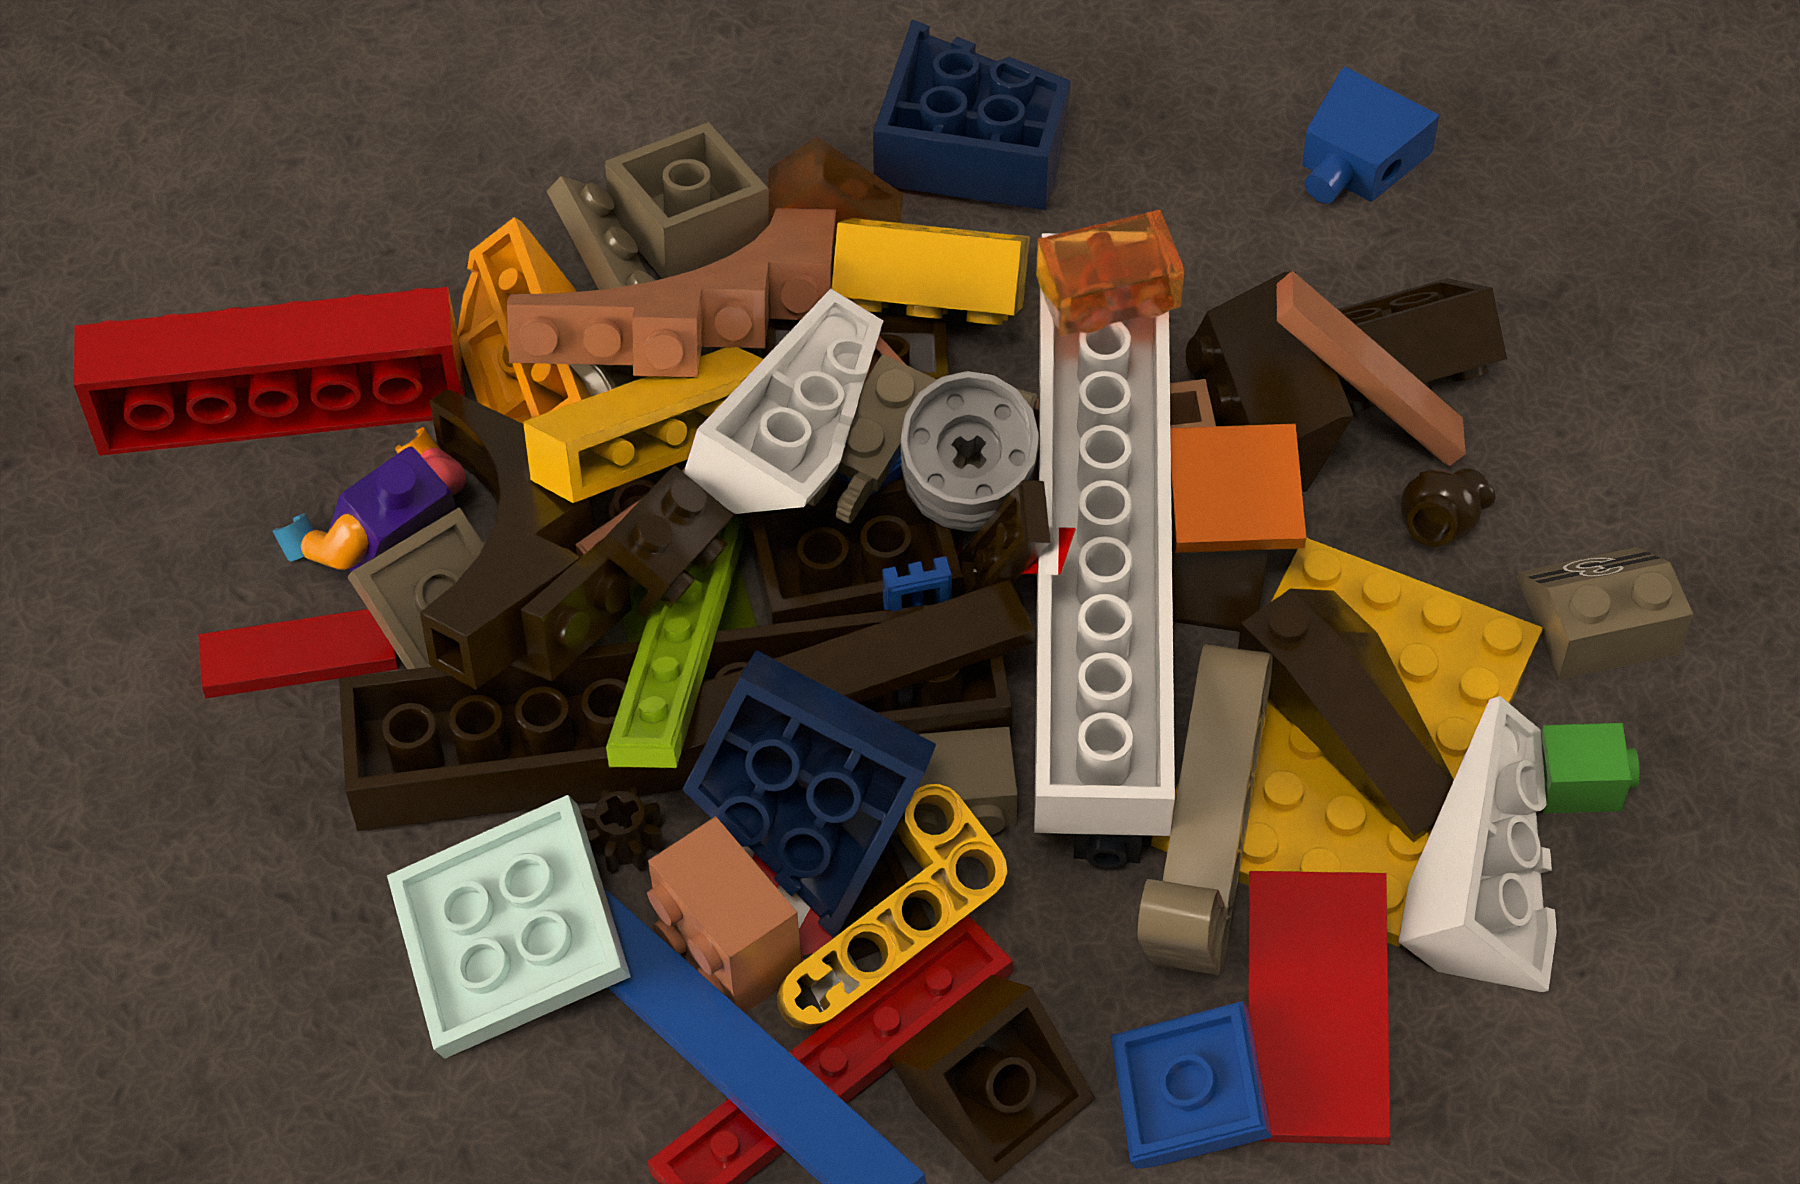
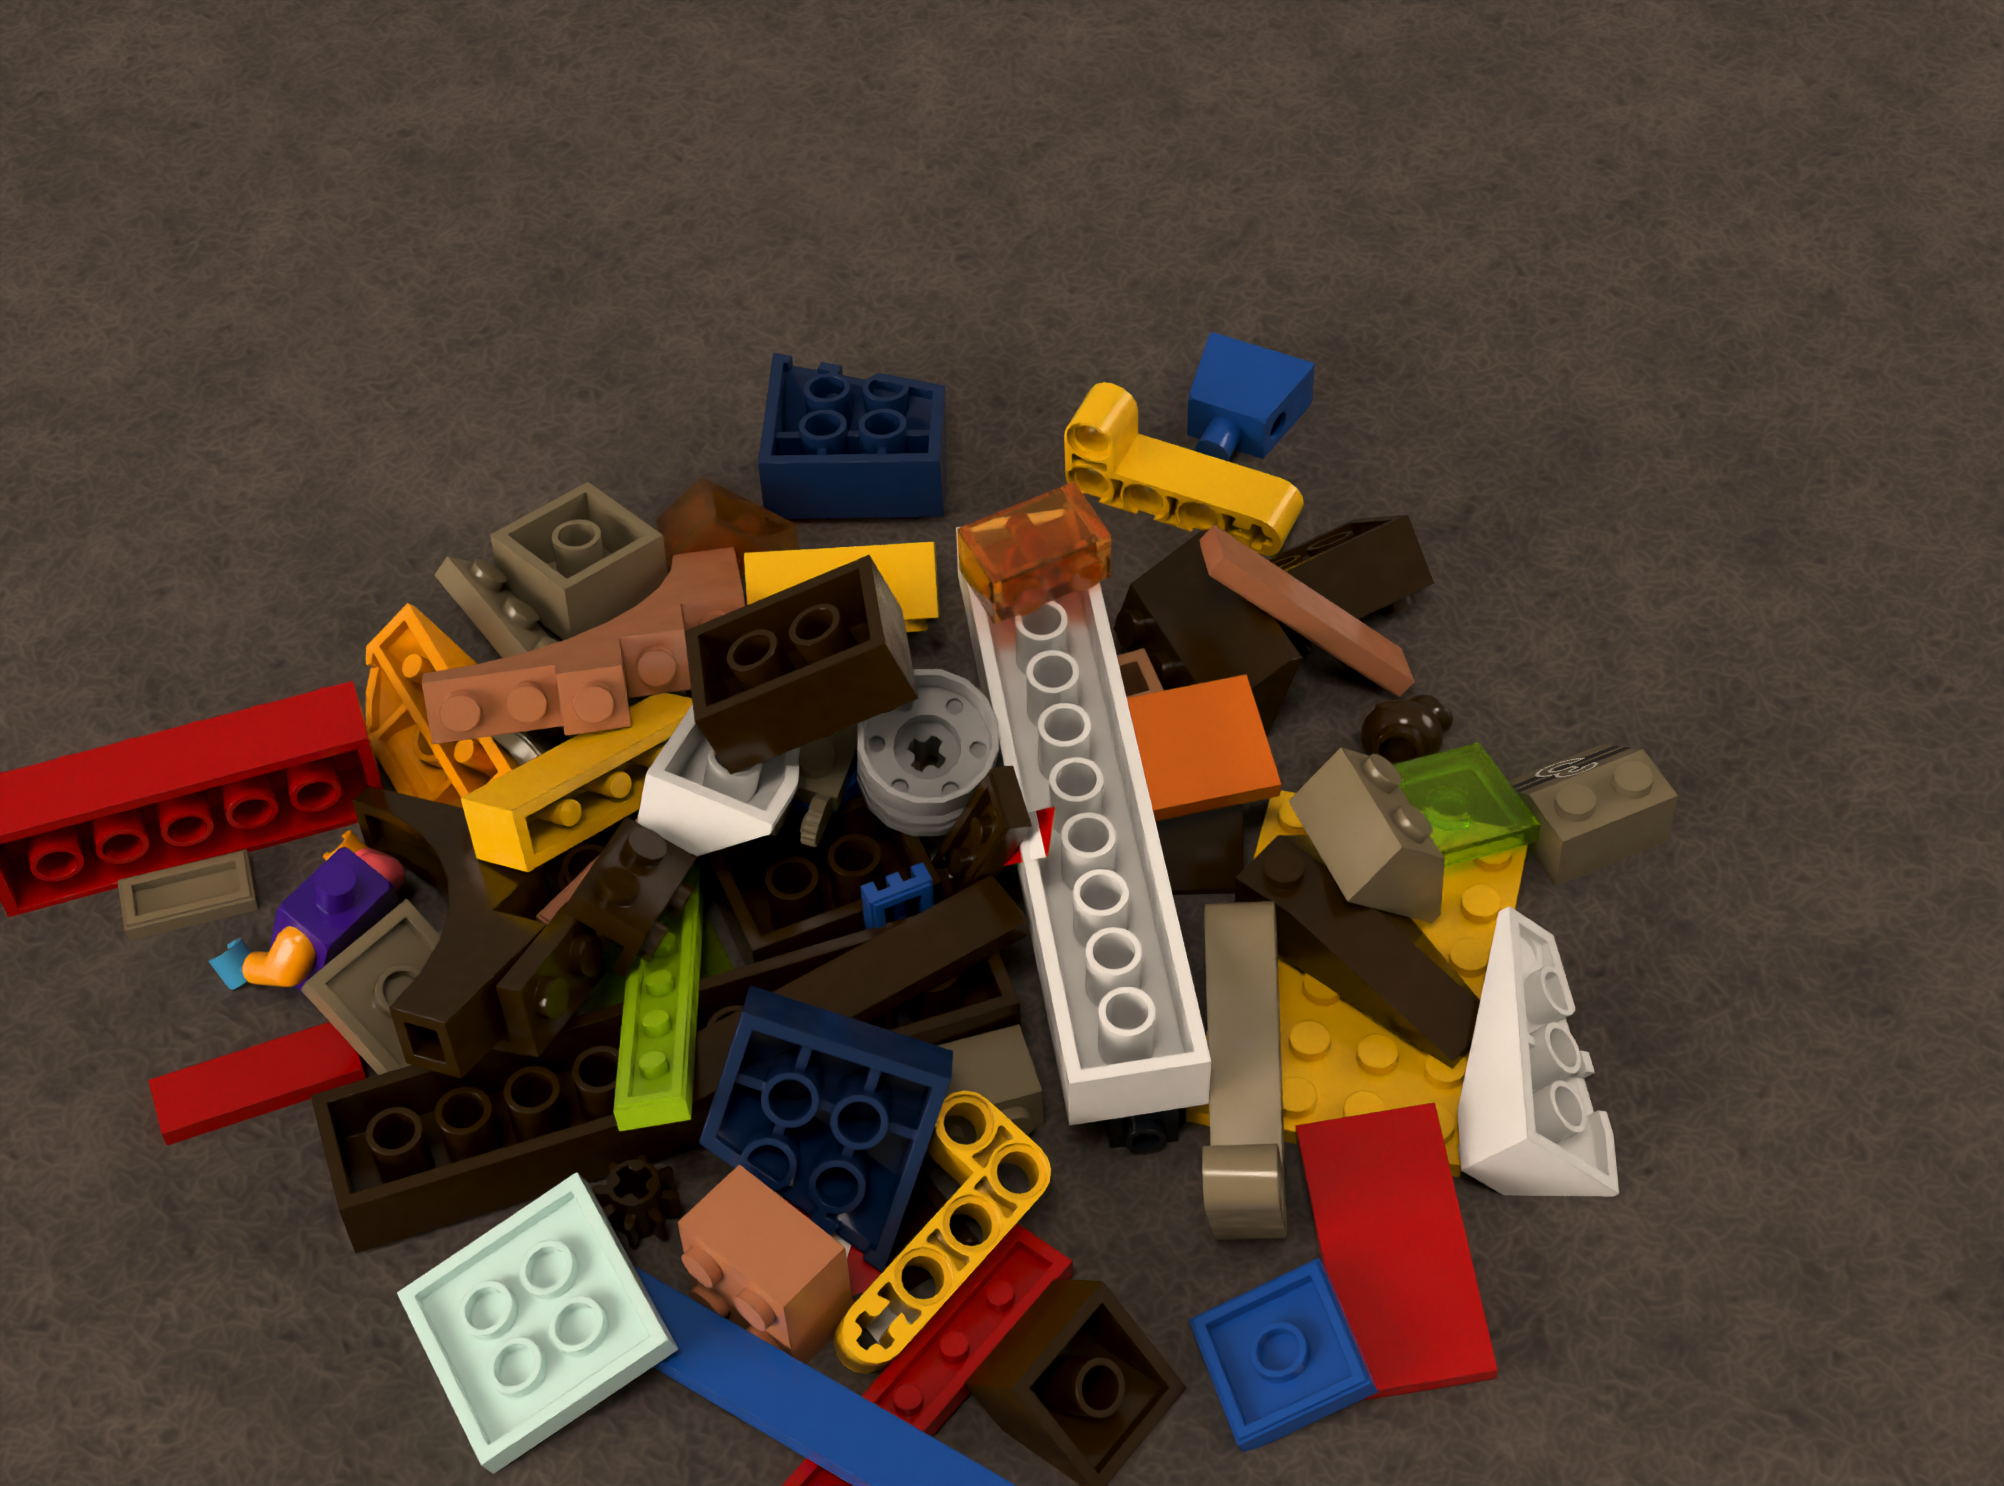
camera: 10 degrees left, 5 degrees down
(265, 463) = (187, 895): none -> dark tan tile
(859, 350) = (799, 665): none -> dark brown brick
(1273, 212) = (1170, 481): none -> yellow beam
(1380, 605) = (1372, 836): none -> dark tan slope
(1469, 586) = (1467, 803): none -> clear neon green tile
(1587, 767) = (1607, 964): bright green brick -> none

